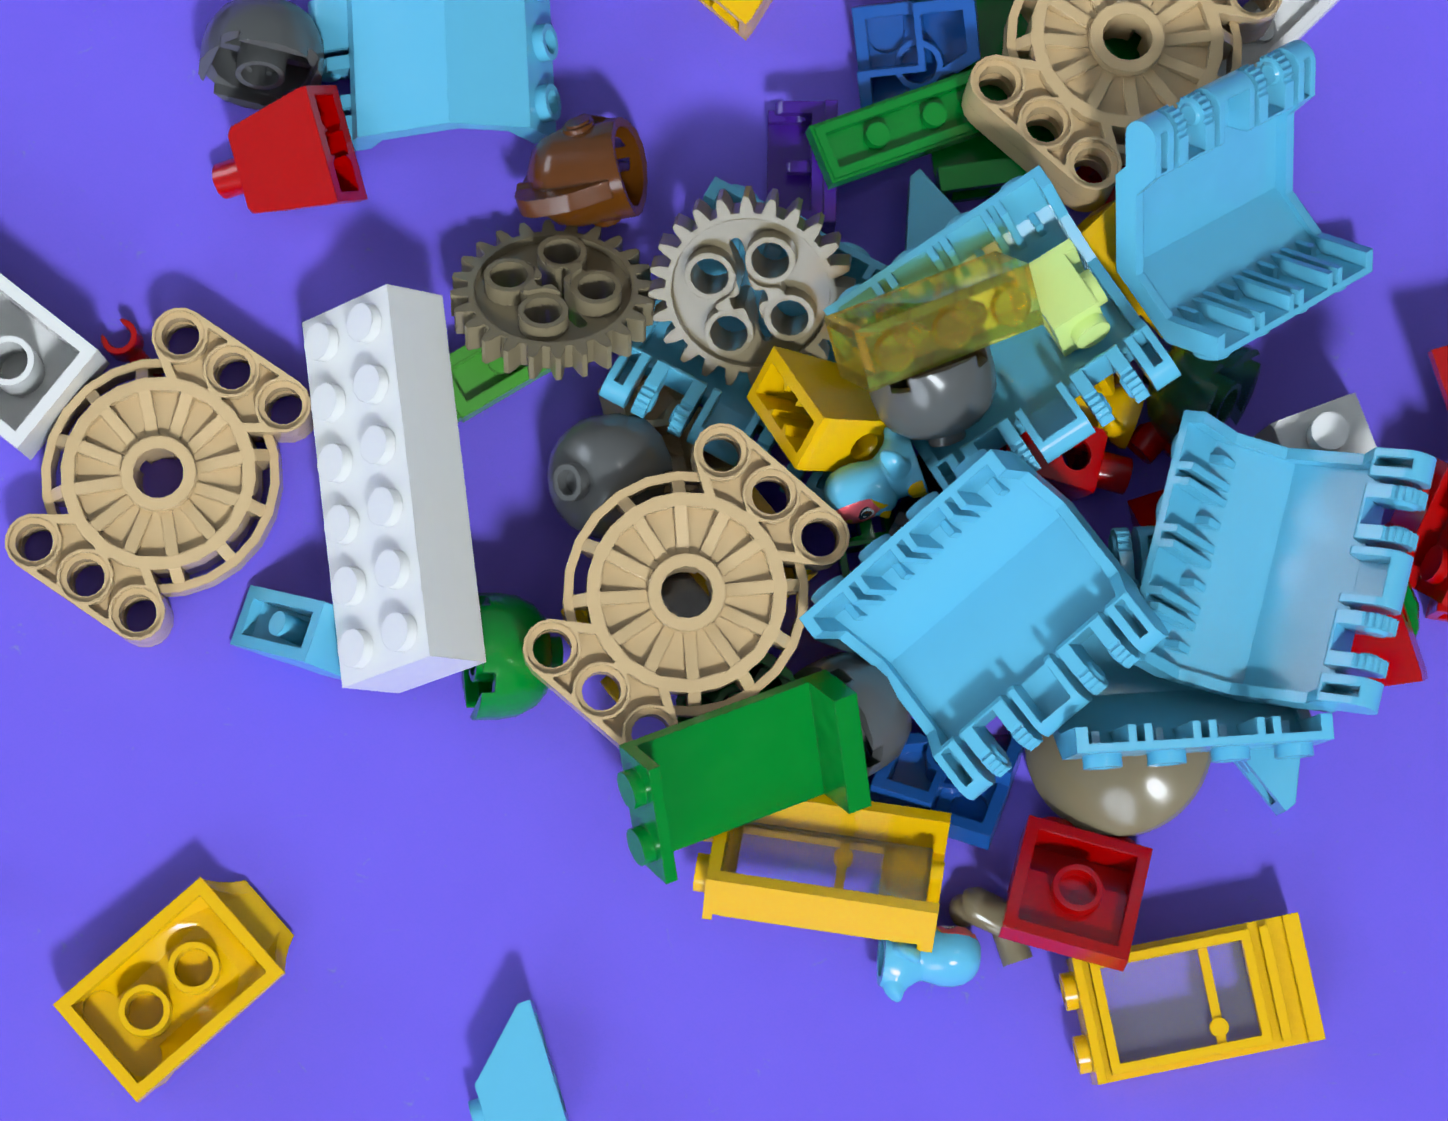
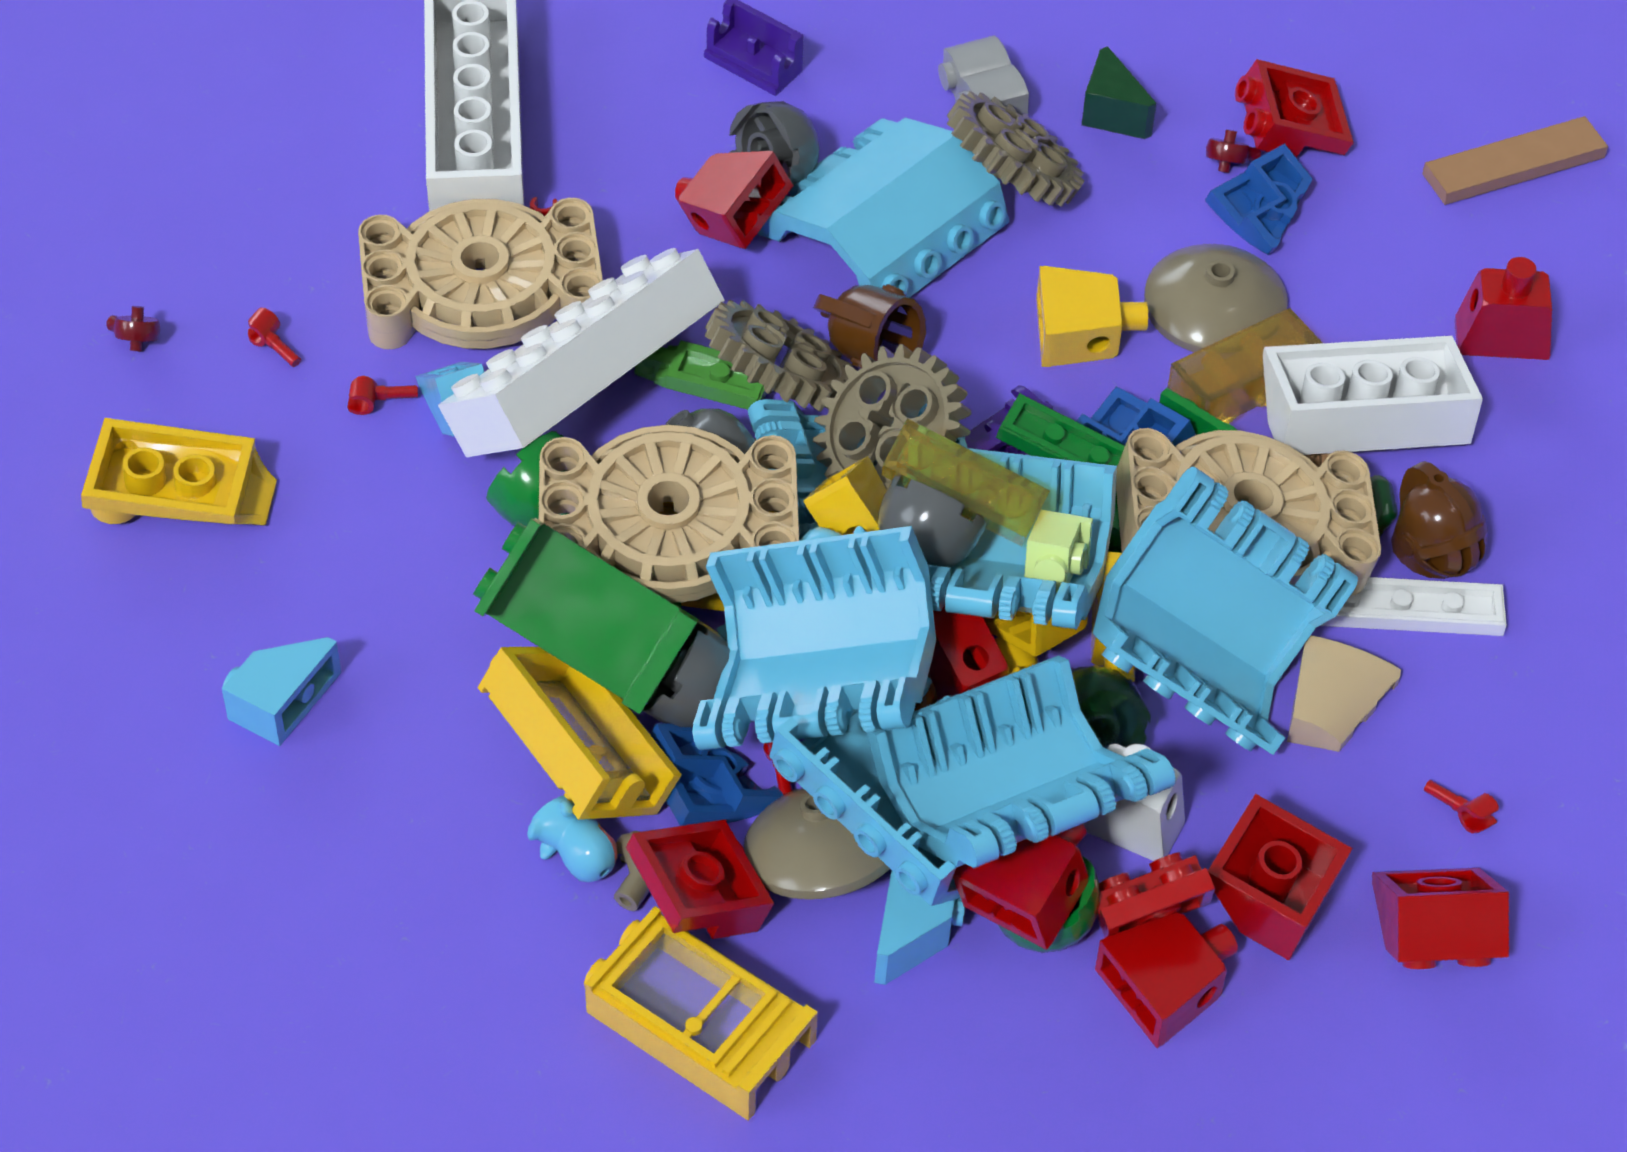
camera: 45 degrees right, 30 degrees down
(39, 746) = (262, 331): none -> red hand
(213, 714) = (365, 391): none -> red hand
(1350, 147) = (1336, 692): none -> tan slope

